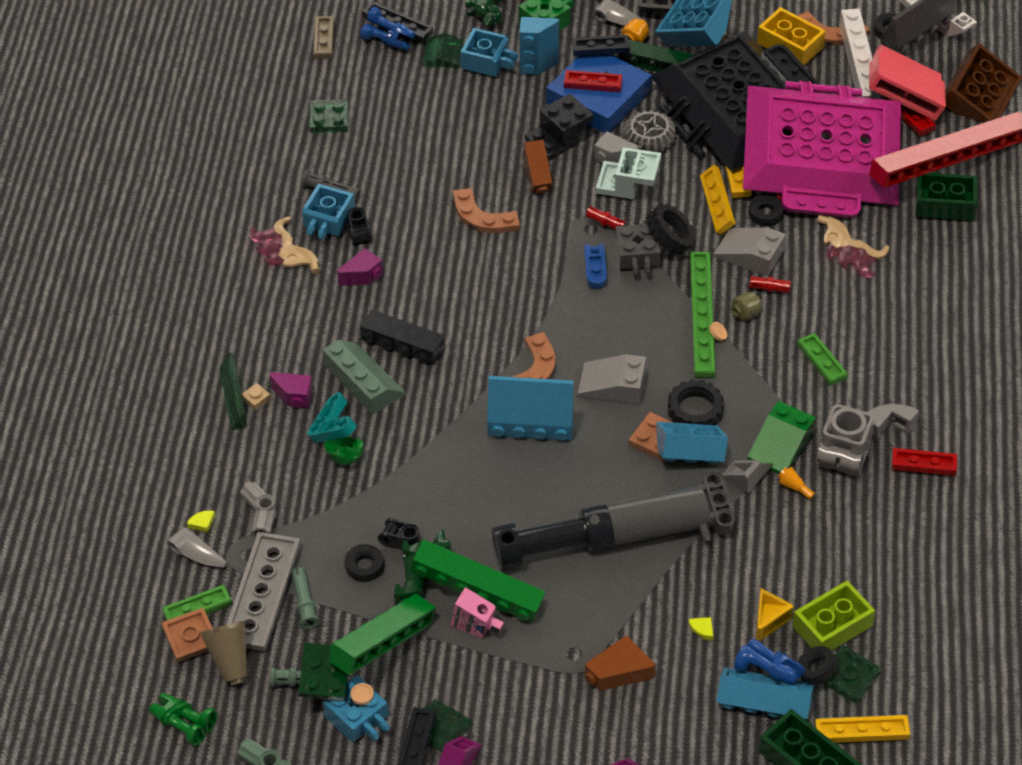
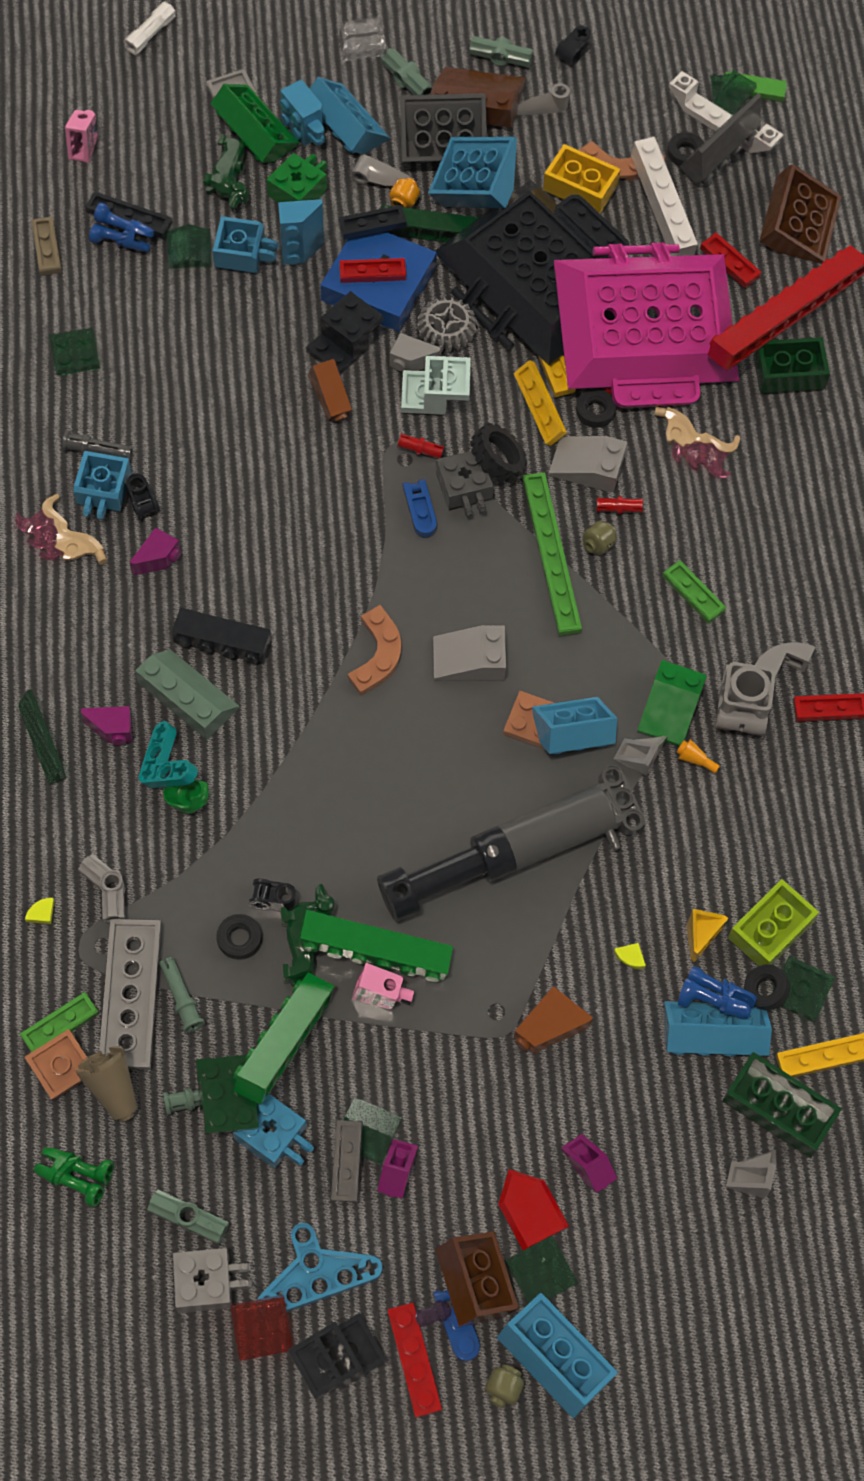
camera: 15 degrees left, 15 degrees up
(192, 547) = (39, 951): light grey piece -> none
(256, 396) = (69, 738): tan plate -> none
(362, 694) = (276, 1117): light nougat piece -> none
(483, 221) = (279, 466): nougat plate -> none
(530, 408) = (389, 714): dark azure slope -> none
(699, 389) = (574, 653): black tyre -> none
(718, 331) = (574, 574): light nougat piece -> none
(907, 82) = (723, 225): coral piece -> none

